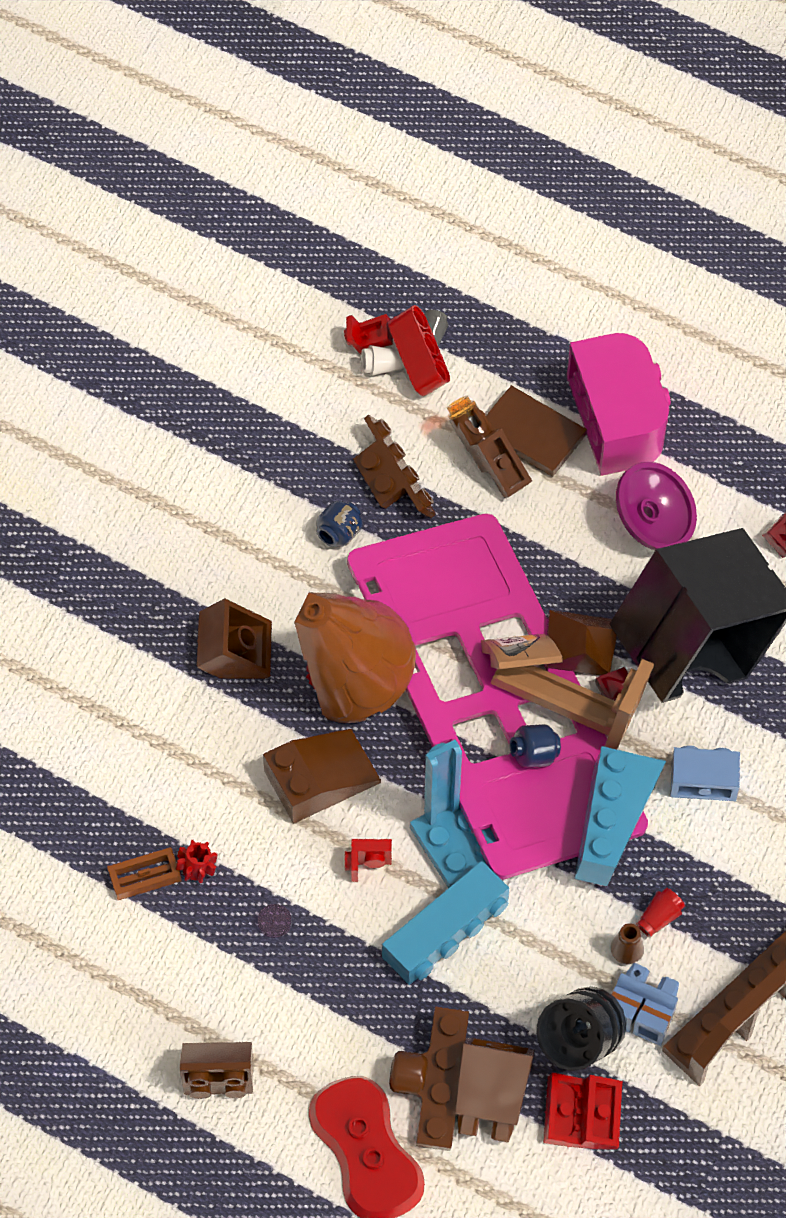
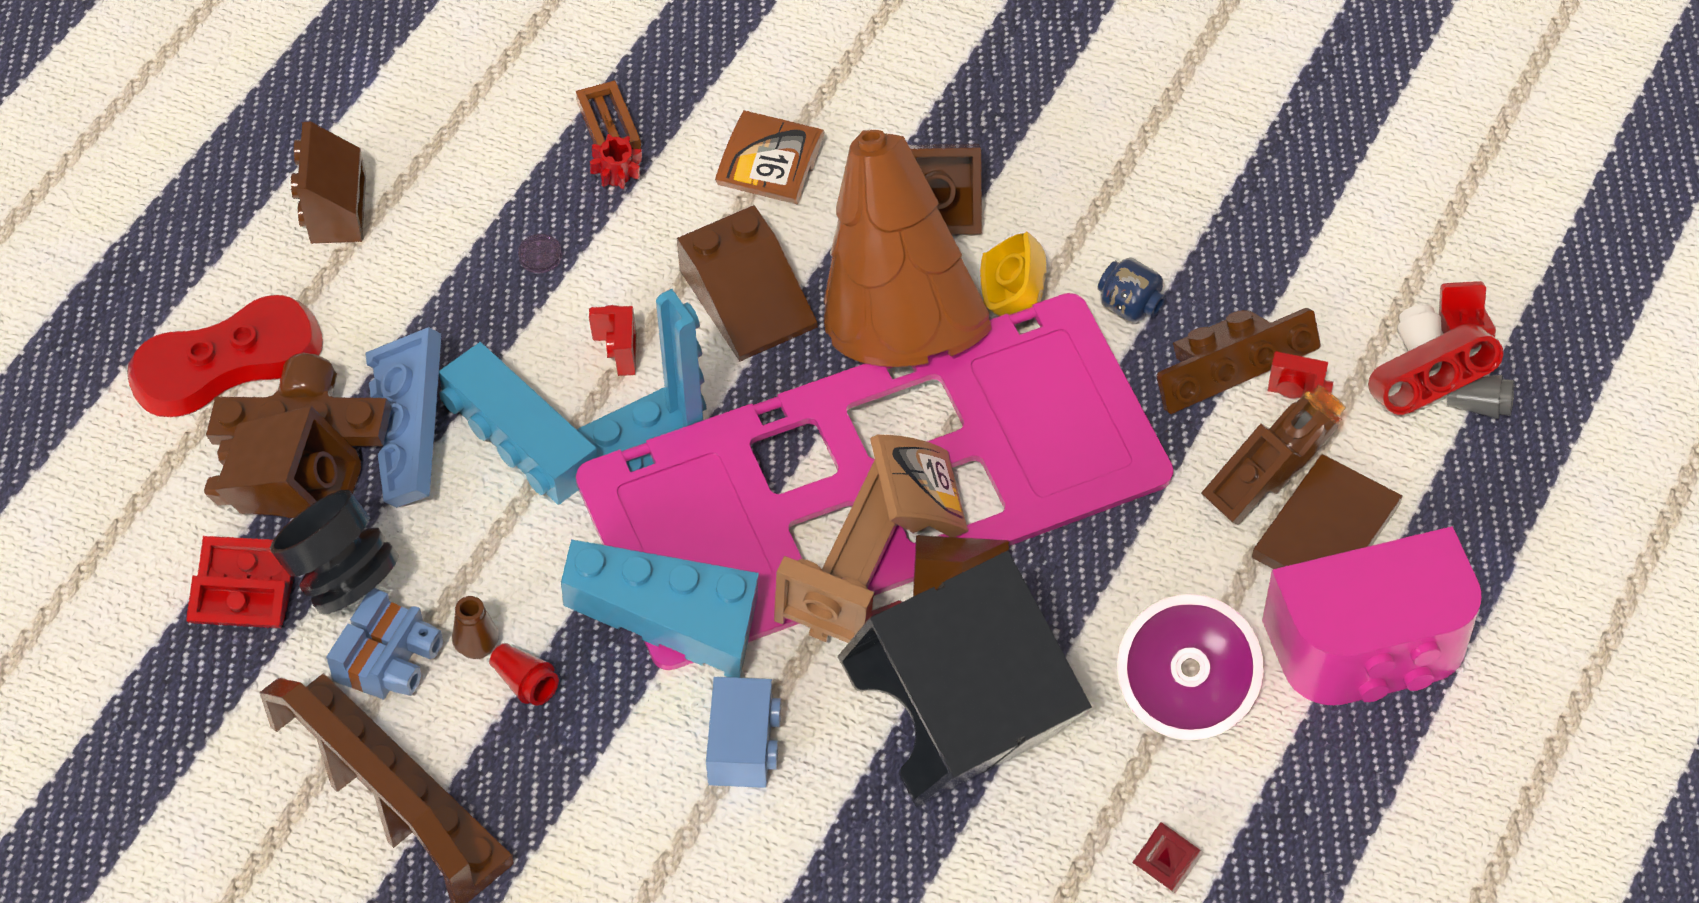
camera: 90 degrees right, 5 degrees down
(192, 756) = (769, 157): none -> slope
(319, 583) = (1013, 274): none -> yellow piece
(408, 999) = (408, 378): none -> medium blue wing
(420, 426) = (1296, 374): none -> red bracket
(535, 745) = (770, 506): dark blue head -> none

